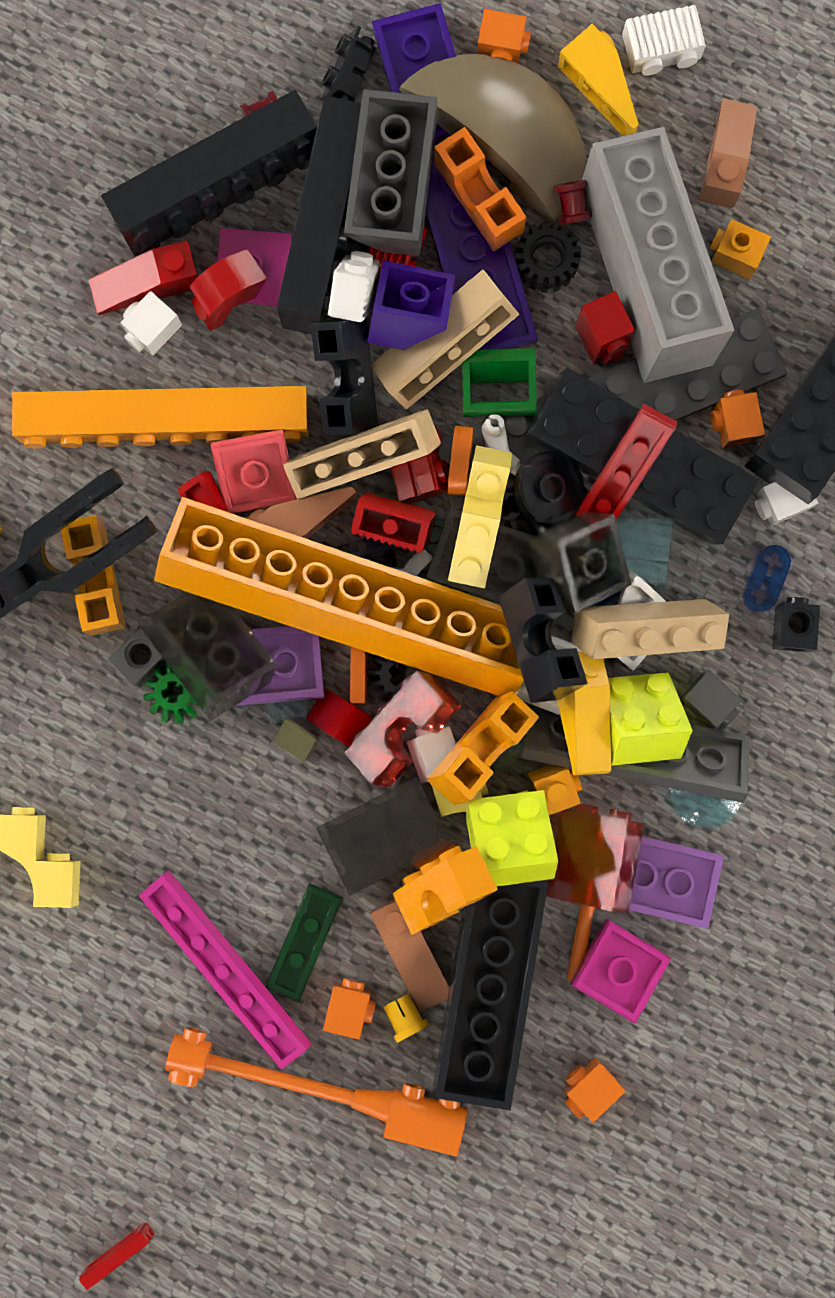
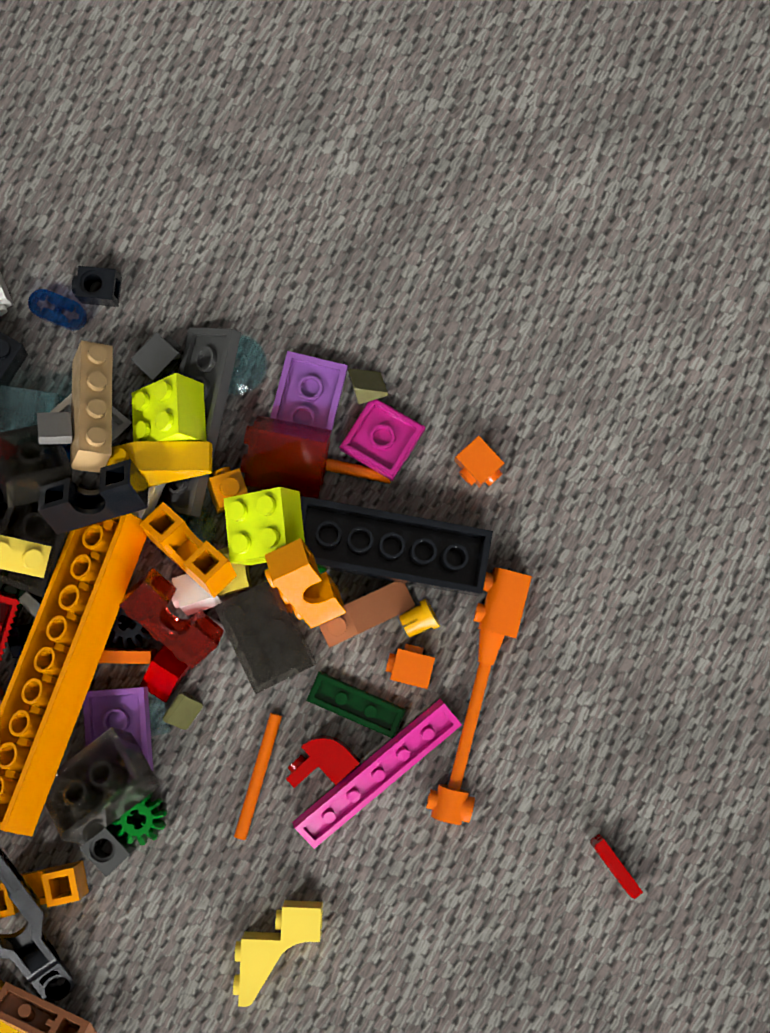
camera: 85 degrees left, 0 degrees up
(221, 827) = (258, 776): none -> orange bar
(246, 911) = (326, 753): none -> red brick
(623, 588) = (54, 428): none -> light grey tile
(684, 952) = (367, 385): none -> olive slope

